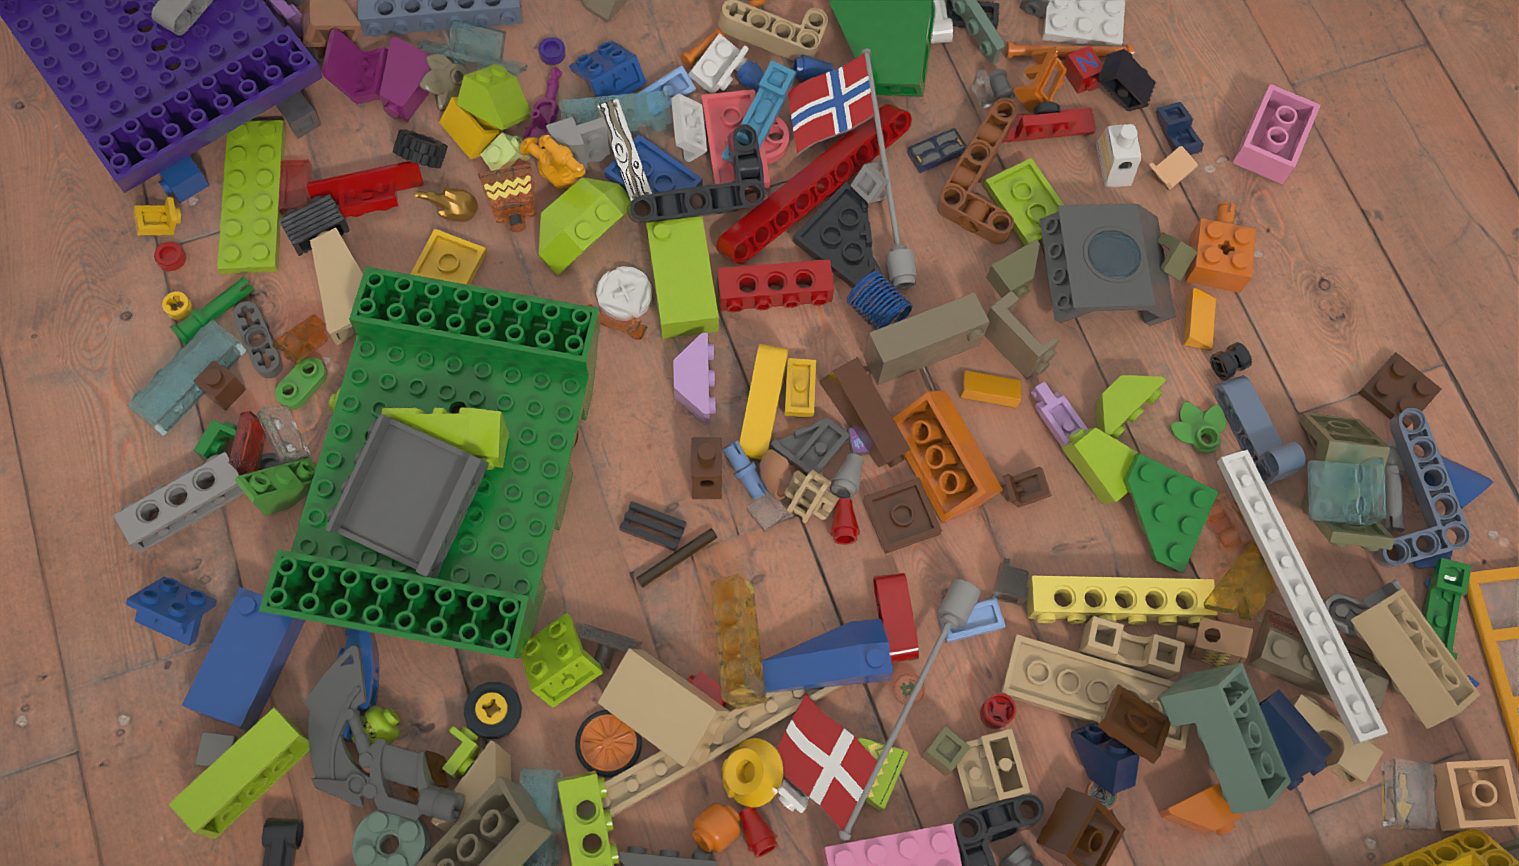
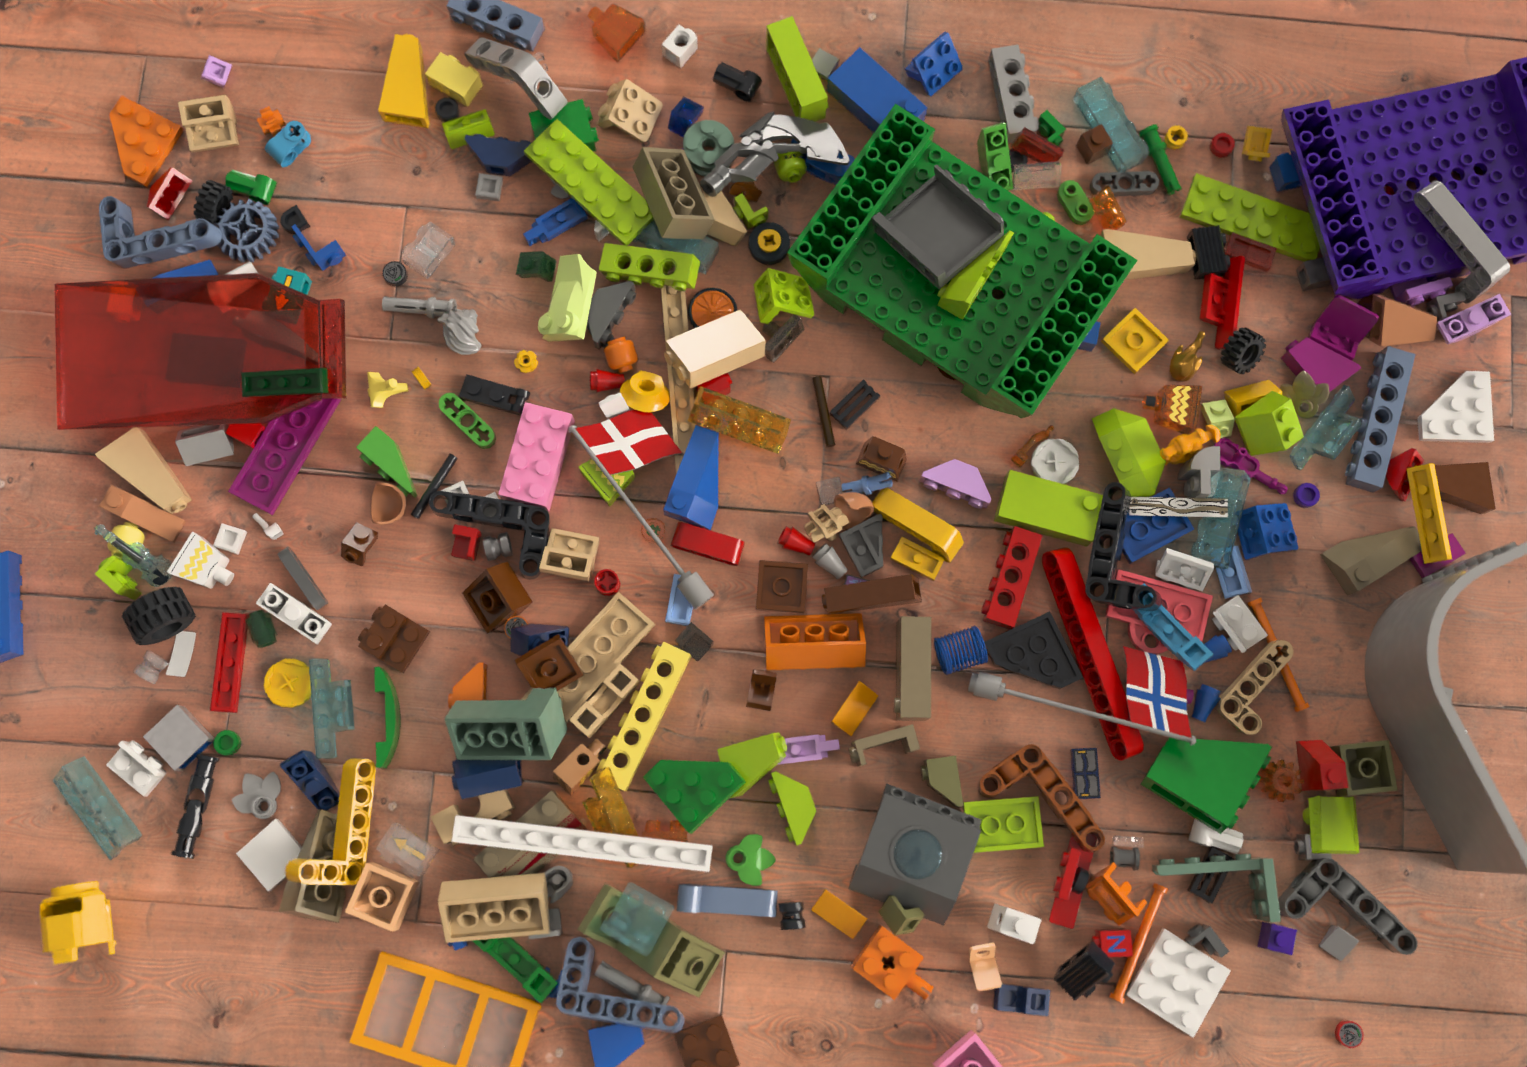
camera: 115 degrees right, 10 degrees up
(870, 183) = (1071, 694): light grey panel -> none
(945, 751) = (596, 529): olive panel -> none

